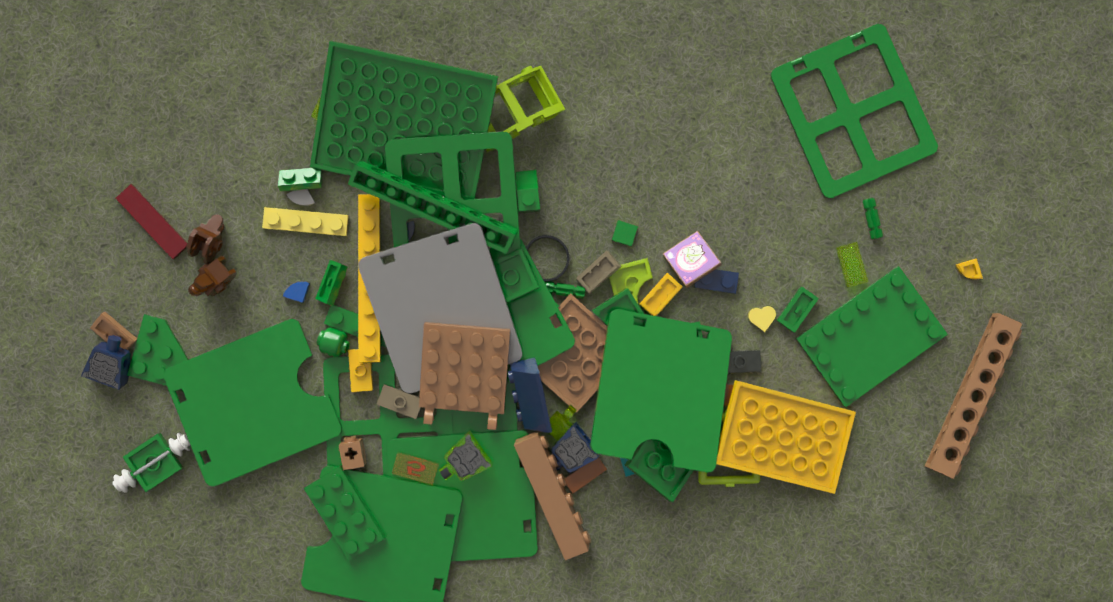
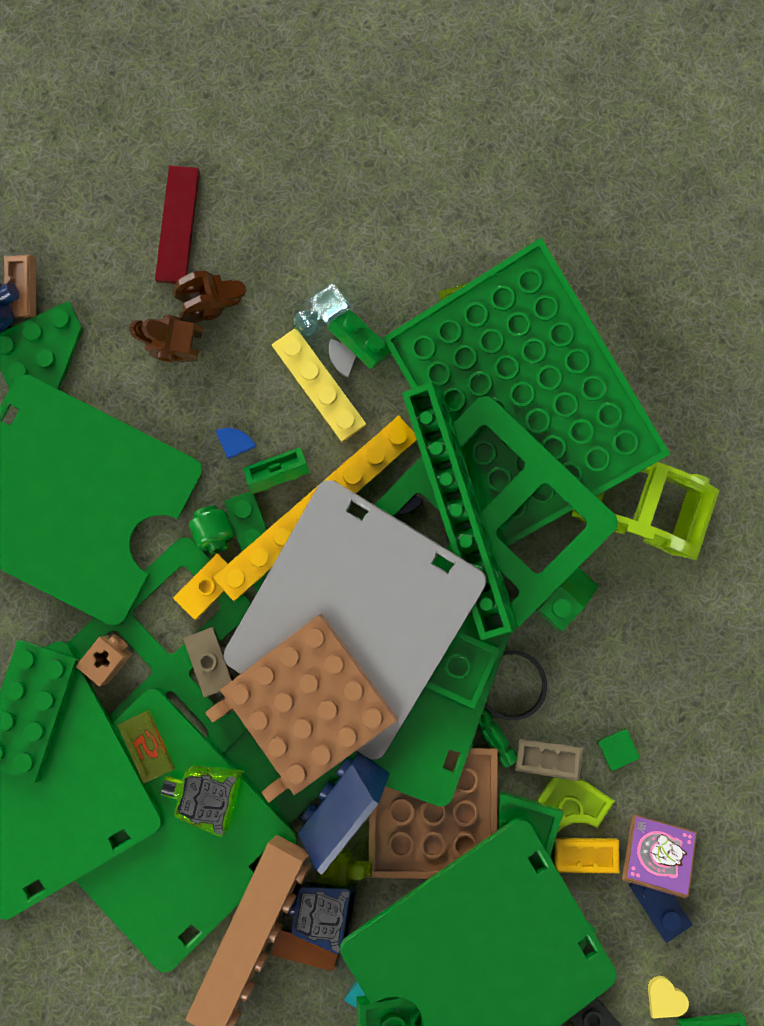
camera: 55 degrees right, 5 degrees down
(266, 181) = (325, 305): none -> clear light blue plate

